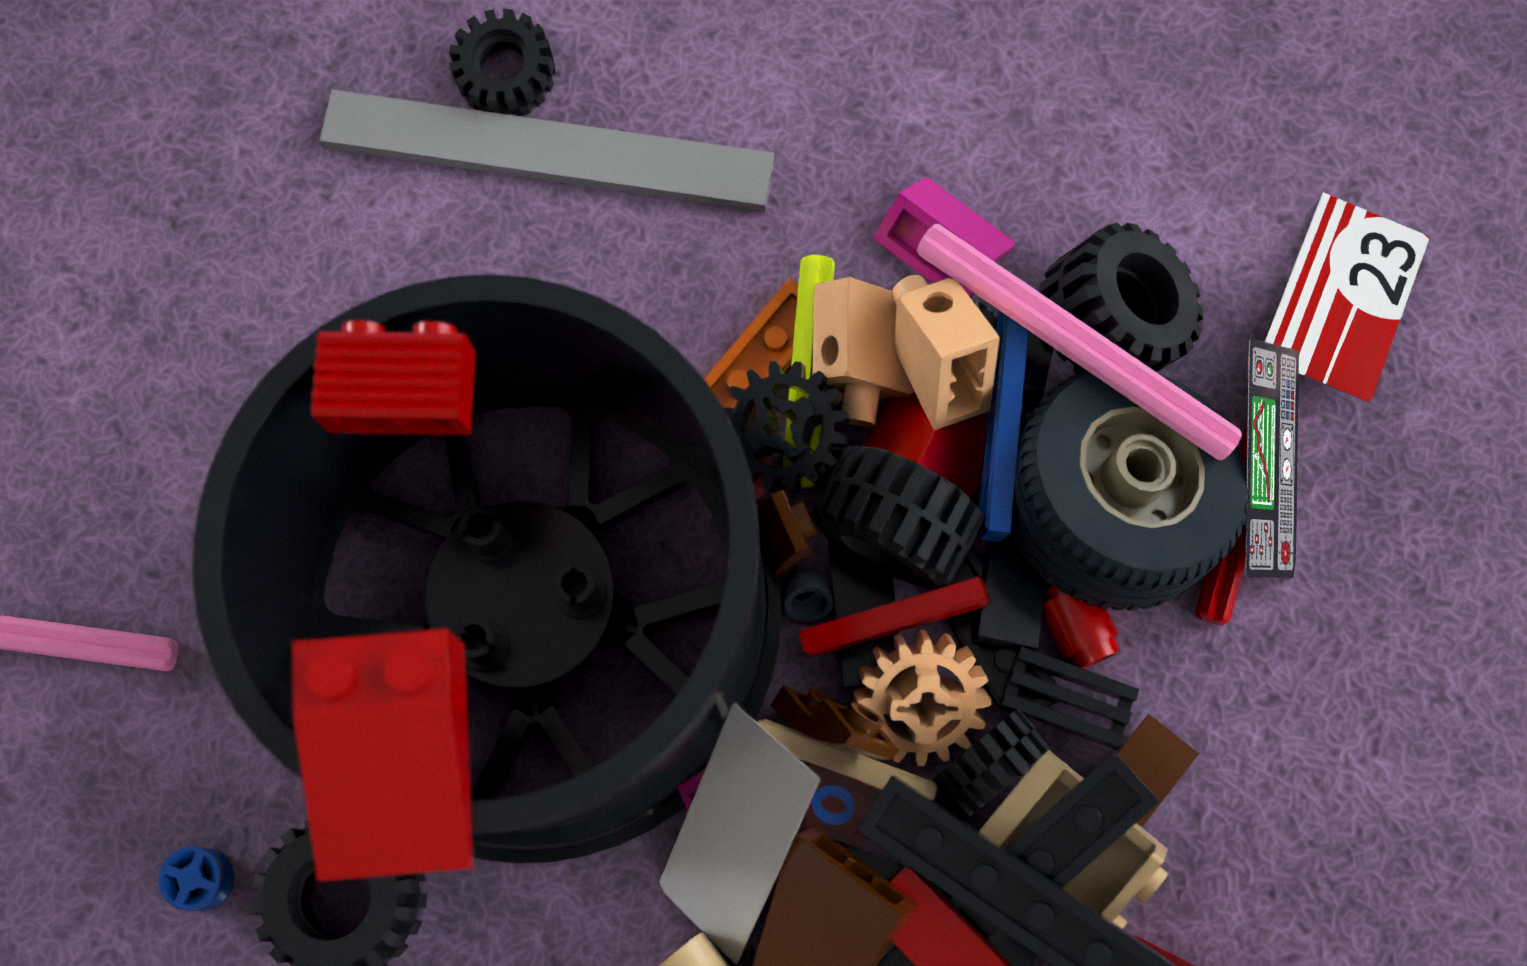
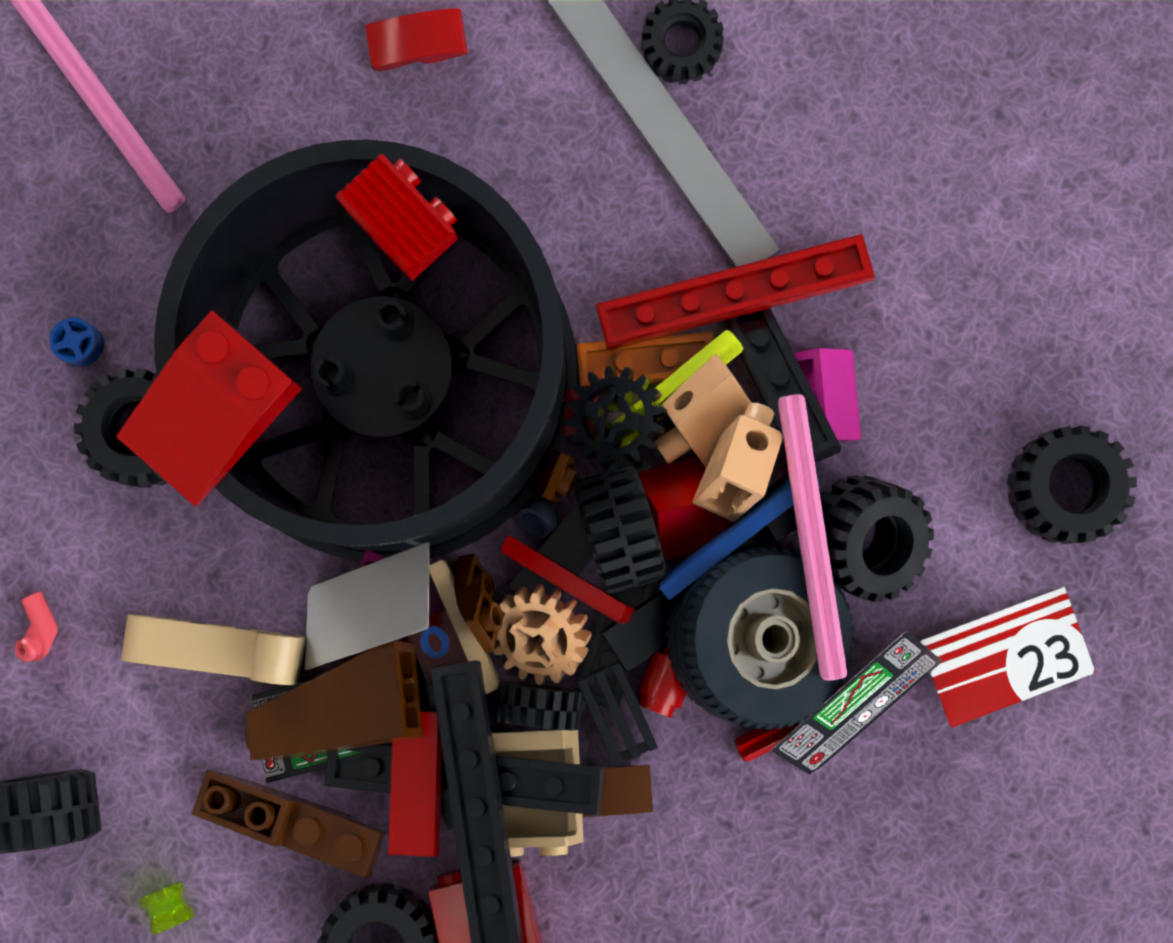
camera: 40 degrees right, 10 degrees up
(256, 287) = (416, 38): none -> red slope
(774, 222) = (735, 292): none -> red tile
(870, 248) = (779, 375): none -> black tile
(1256, 58) = (1109, 480): none -> black tyre

